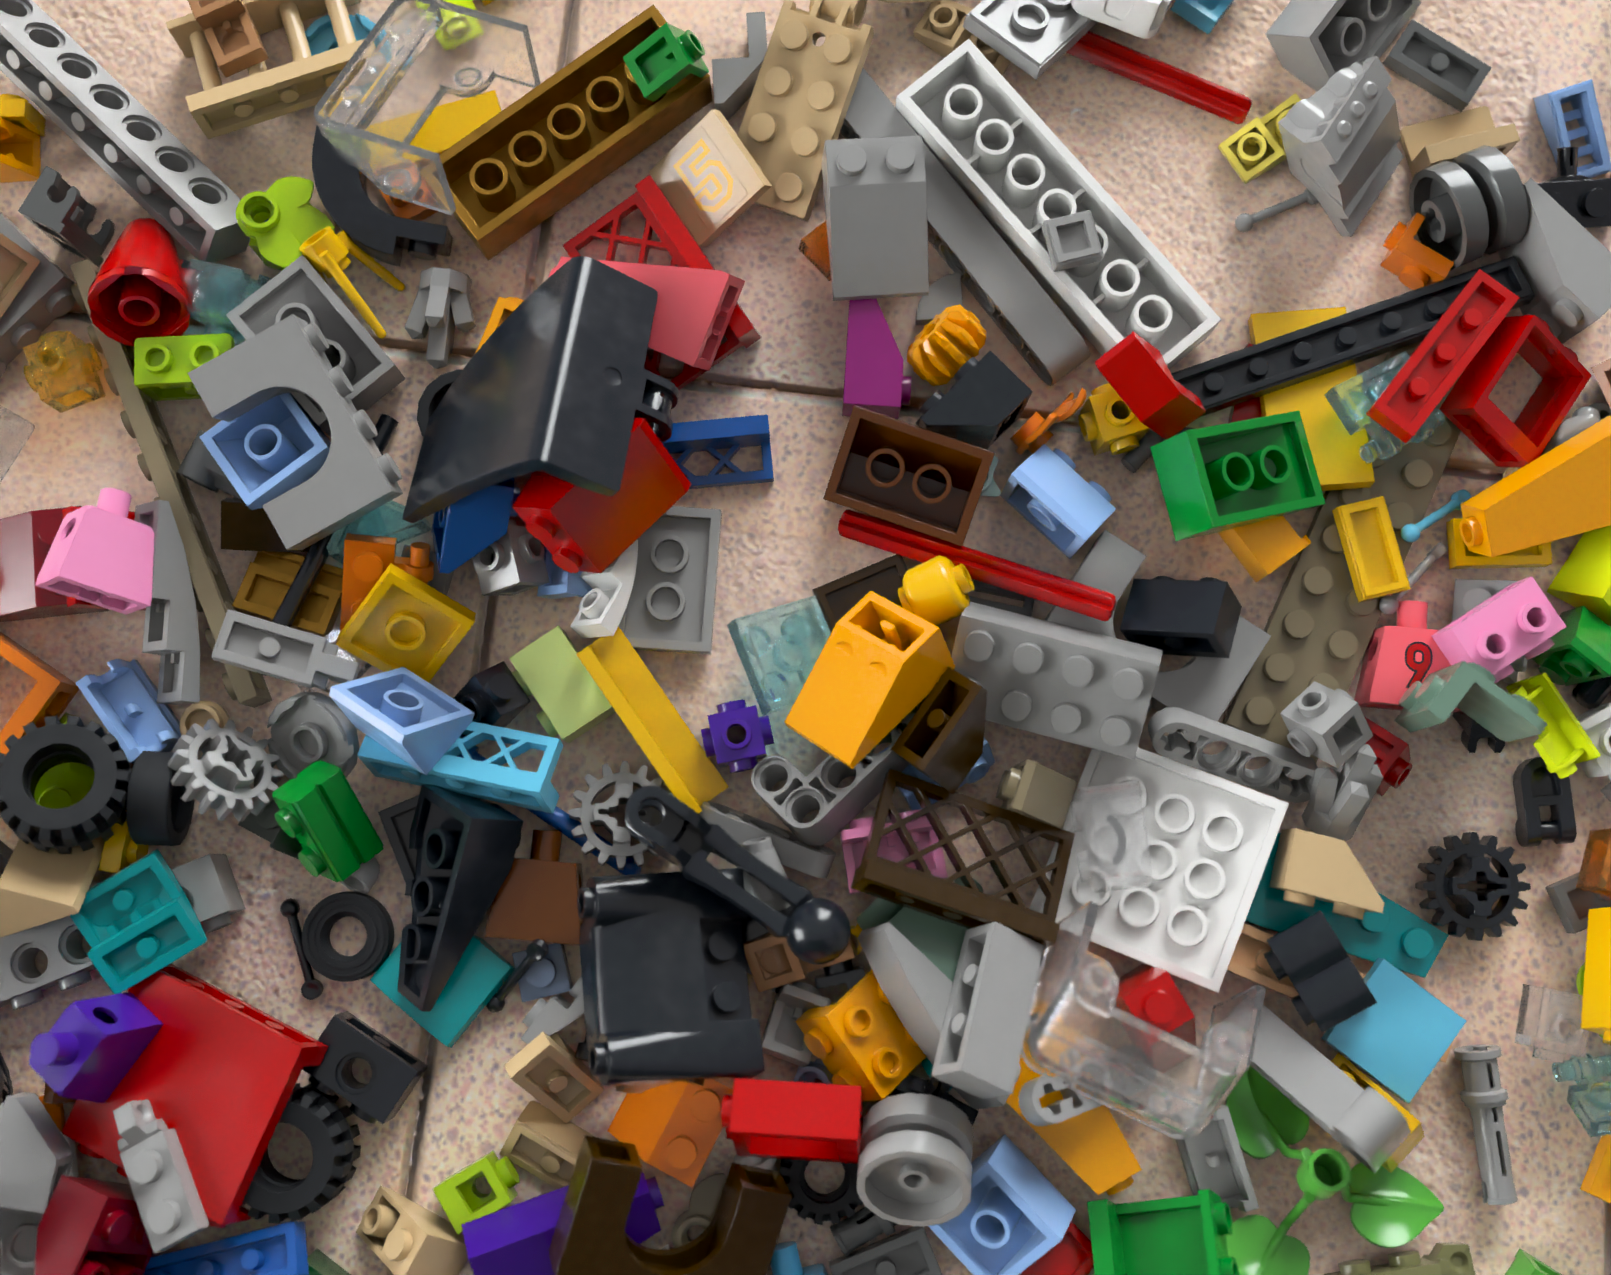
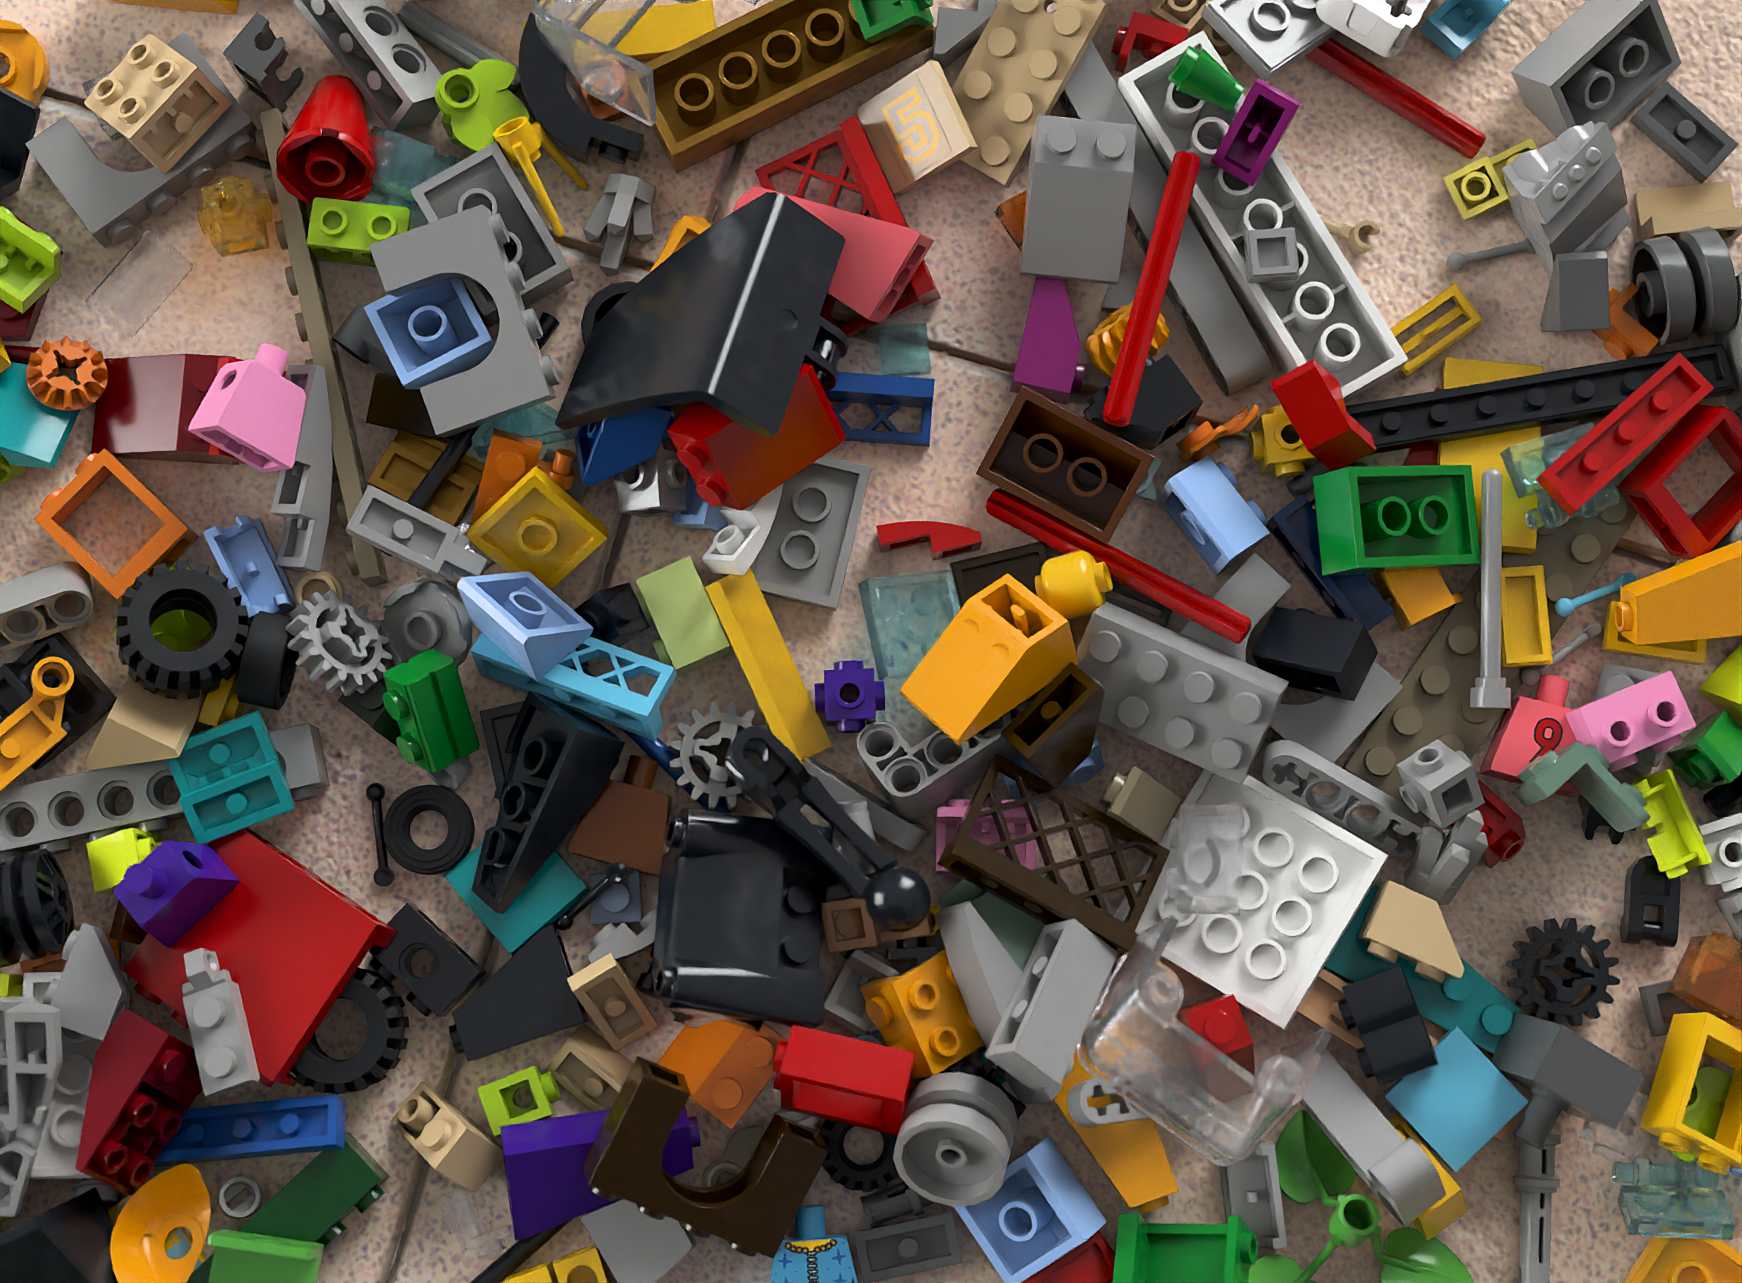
camera: 10 degrees right, 0 degrees up
(40, 1013) = (116, 853): none -> neon yellow slope
(244, 167) = (448, 39): none -> light grey axle
(462, 1092) = (519, 1001): none -> black slope
(734, 392) = (904, 350): none -> clear light blue tile
(802, 568) = (943, 538): none -> red slope
(914, 57) = (1146, 35): none -> red bracket
(963, 292) = (1151, 289): none -> red axle
(980, 82) = (1205, 79): none -> green cone
(1038, 122) = (1256, 132): none -> magenta slope
(1142, 215) = (1350, 234): none -> tan hand
(1144, 507) = (1344, 595): none -> dark blue container
(1259, 263) = (1463, 307): none -> yellow tile
(1355, 623) = (1490, 688): none -> light grey piece
(1370, 230) = (1577, 293): none -> dark grey slope
(1498, 991) = (1563, 1075): none -> dark grey brick

